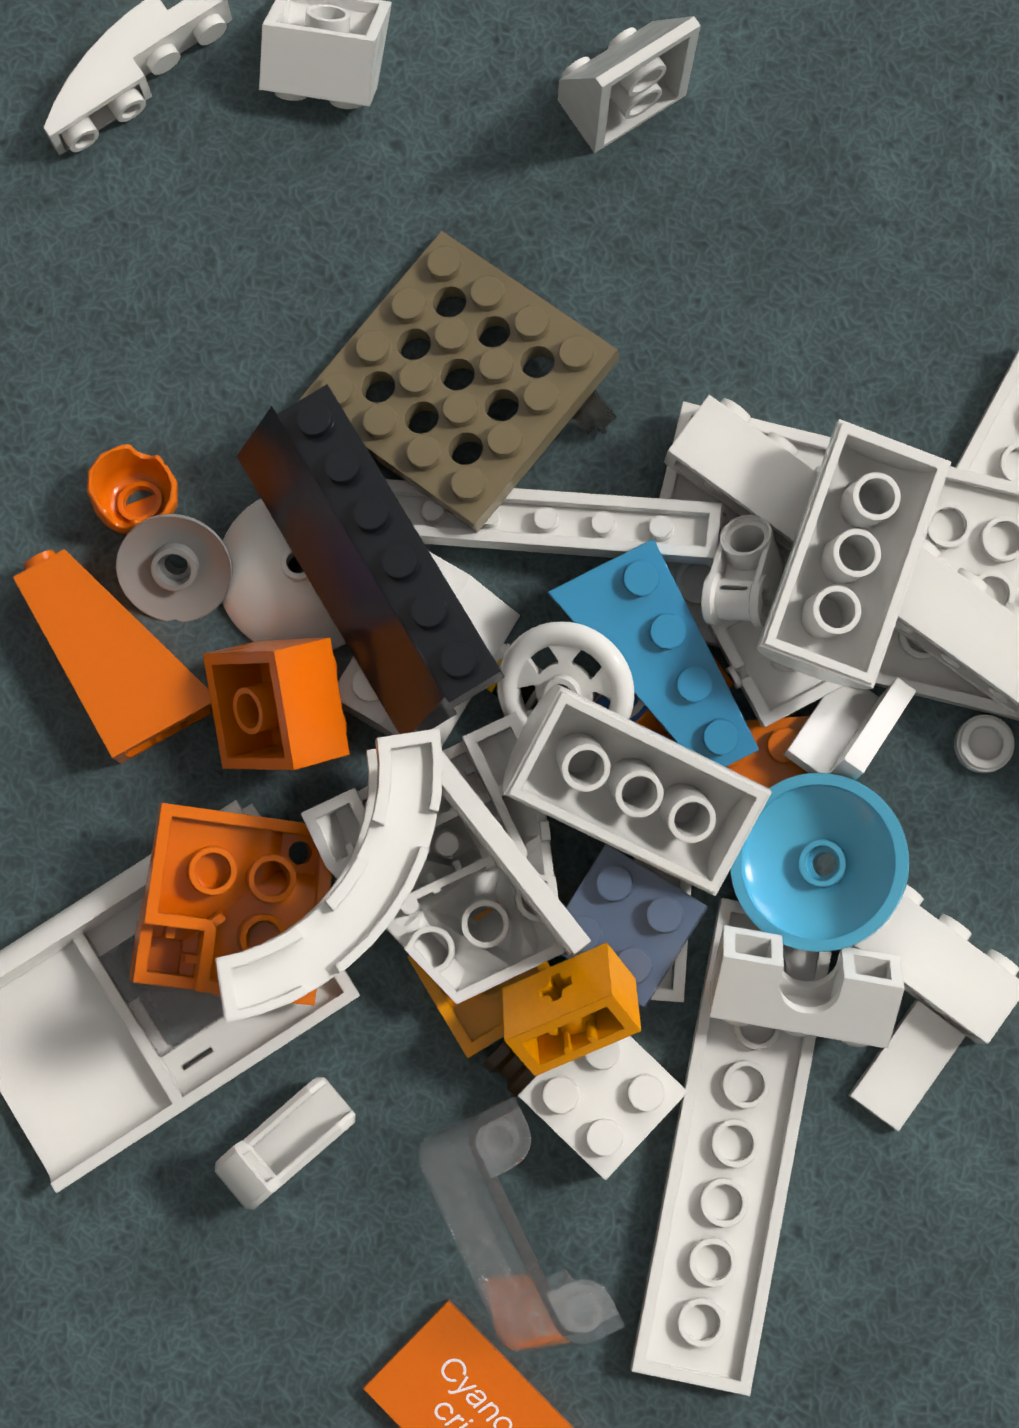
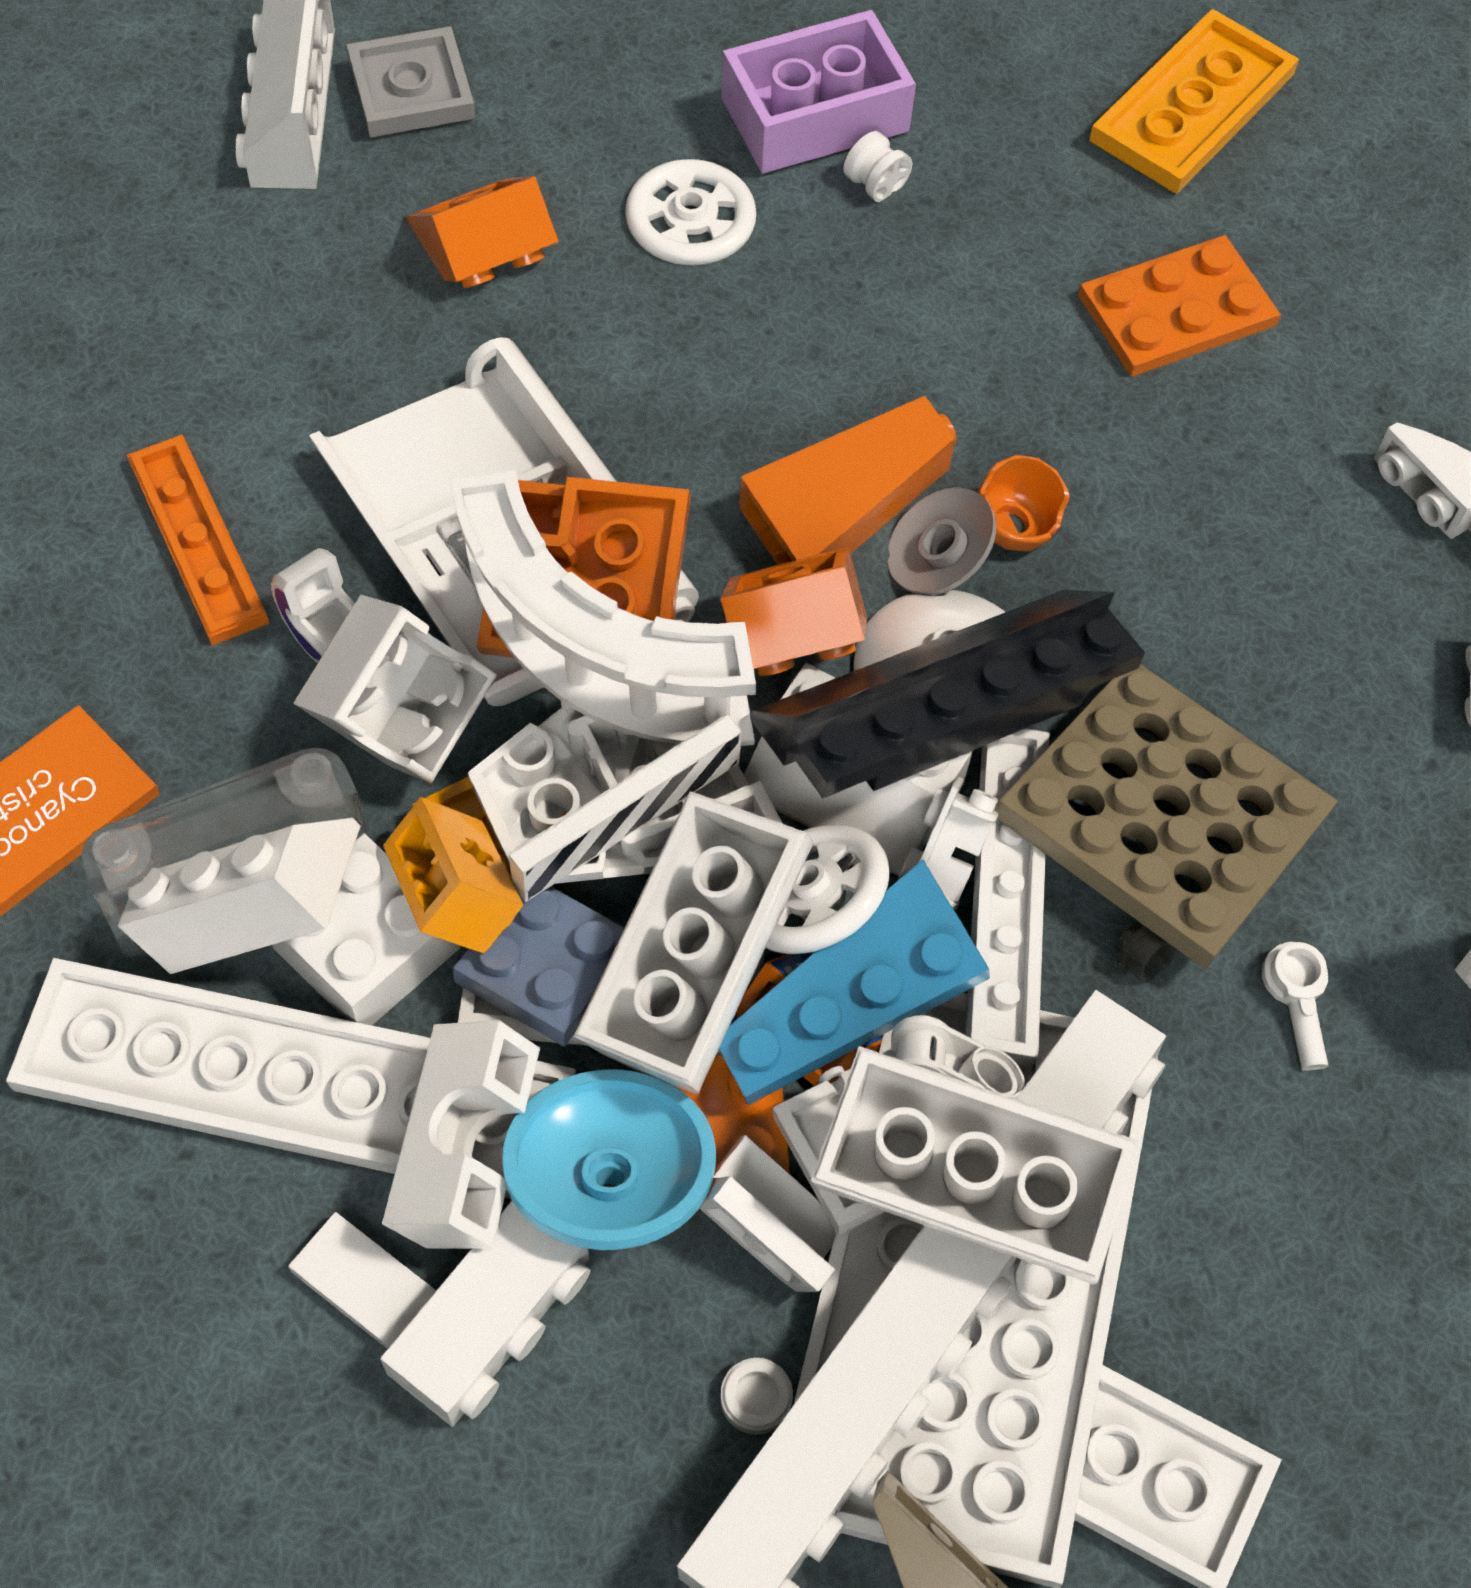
camera: 90 degrees right, 20 degrees down
(164, 1298) = (198, 540): none -> orange tile
(372, 1078) = (395, 688): none -> white piece
(495, 569) = (955, 823): none -> white hinge
(584, 1194) = (240, 895): none -> white slope
(611, 284) = (1297, 977): none -> white plate

